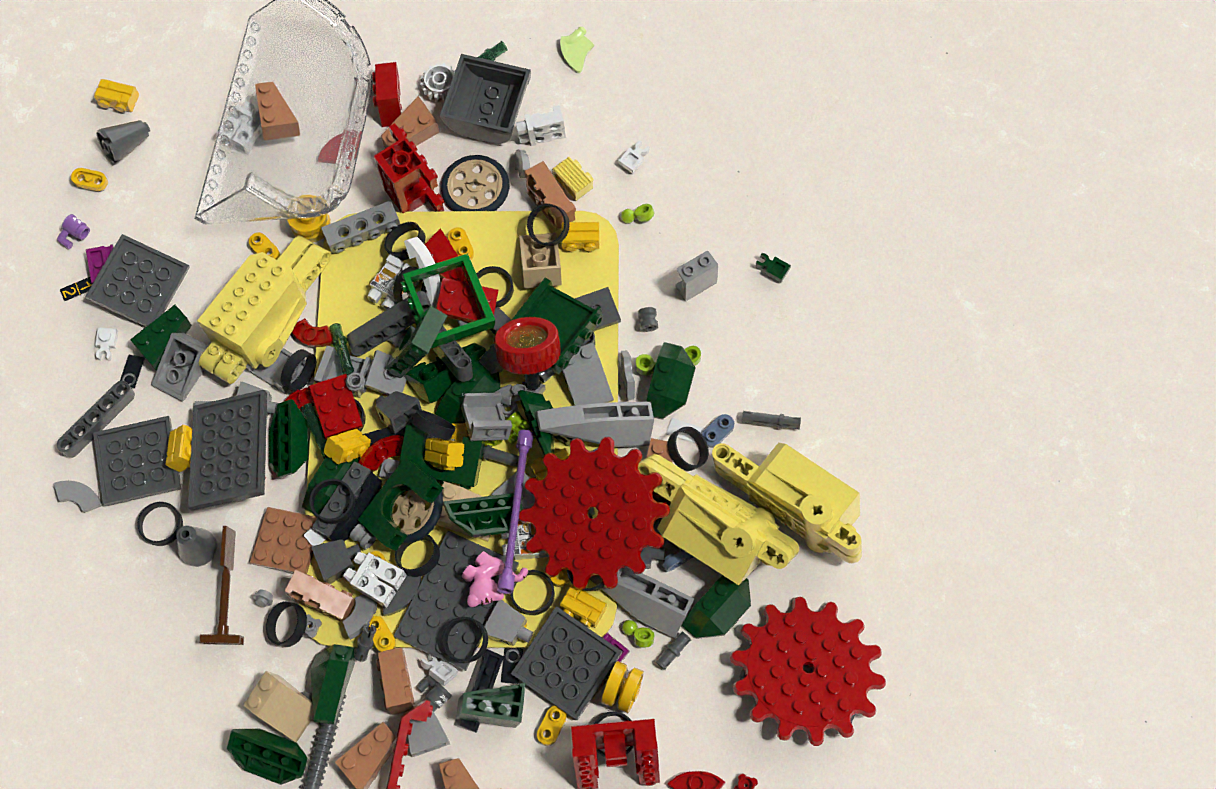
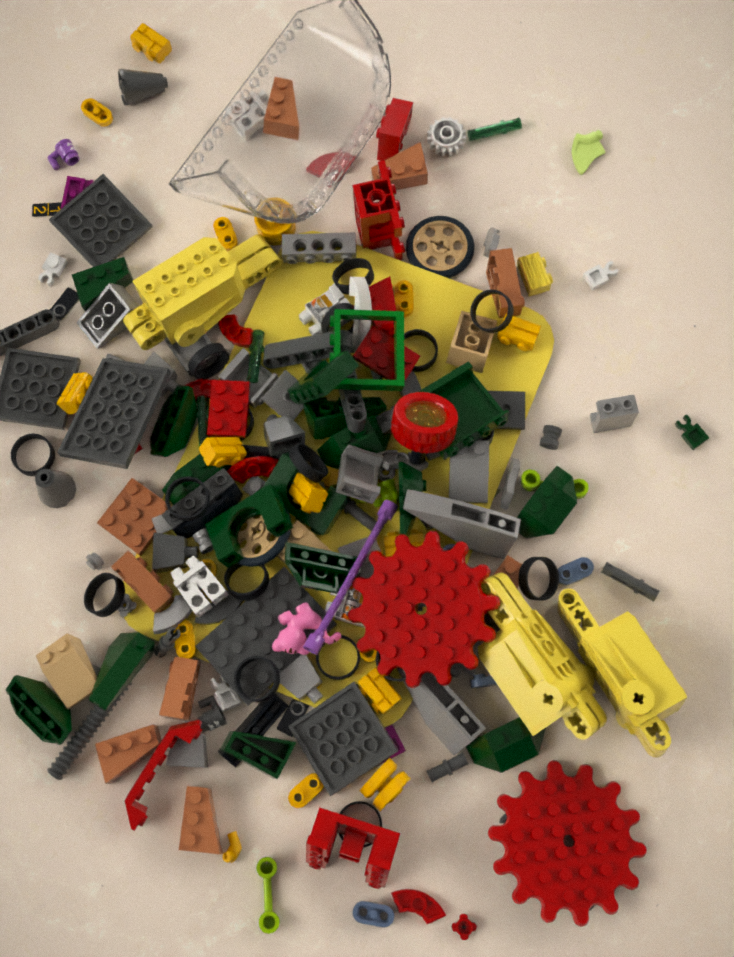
camera: 25 degrees right, 5 degrees up
(222, 634) = (74, 514): reddish brown piece -> none
(353, 377) = (250, 389): light grey plate -> none
(484, 99) = (480, 167): dark grey container -> none
(542, 127) = (523, 214): white hips -> none
(642, 213) = (586, 332): lime plate -> none
(642, 636) = (416, 728): lime plate -> none
(677, 424) = (538, 550): white sticker -> none

